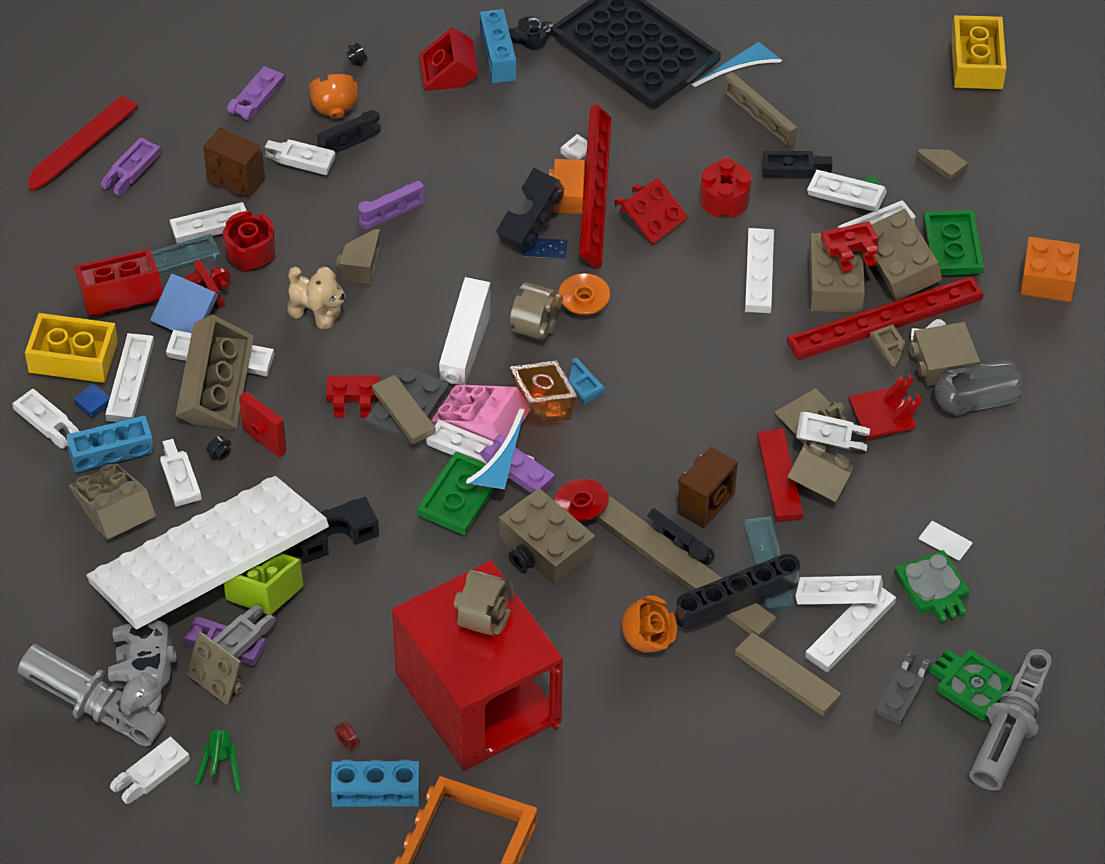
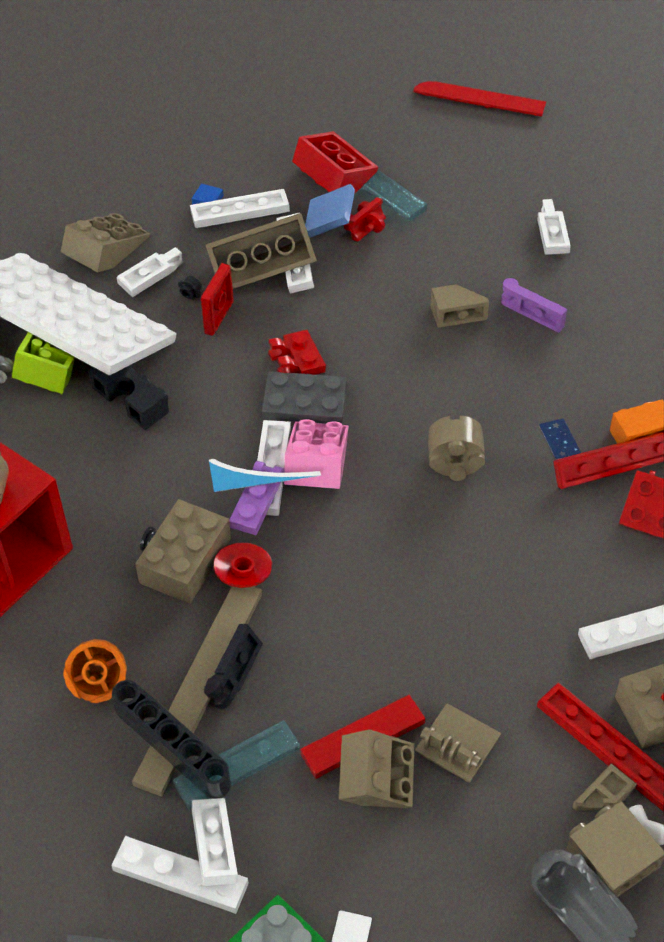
camera: 70 degrees right, 0 degrees up
(44, 417) = (173, 175): white hinge -> none
(71, 347) = (247, 160): yellow brick -> none
(110, 443) = (155, 215): dark azure brick -> none
(131, 165) = (470, 132): medium lavender hinge -> none
(203, 223) = (438, 198): white plate -> none
(234, 163) = (504, 183): reddish brown brick -> none
(249, 240) = (426, 225): red brick -> none
(256, 93) = (607, 179): medium lavender plate -> none
(319, 294) = (382, 284): tan animal -> none
(334, 96) = (633, 222): orange cylinder -> none
(350, 132) = (600, 249): black hinge -> none
(403, 409) = (285, 390): dark tan tile -> none
(452, 500) = (191, 466): green plate -> none
(466, 331) = (402, 404): white slope -> none
(523, 229) = (602, 402): black arch -> none
(545, 390) = (355, 483): clear orange slope -> none
(584, 294) = (511, 475): orange dish -> none
(584, 383) = (400, 523): dark azure tile -> none
(706, 487) = (296, 664): reddish brown brick -> none
(788, 674) = (91, 830): dark tan tile -> none
(830, 431) = (431, 762): white hinge -> none
(885, 409) = (500, 812): red plate -> none

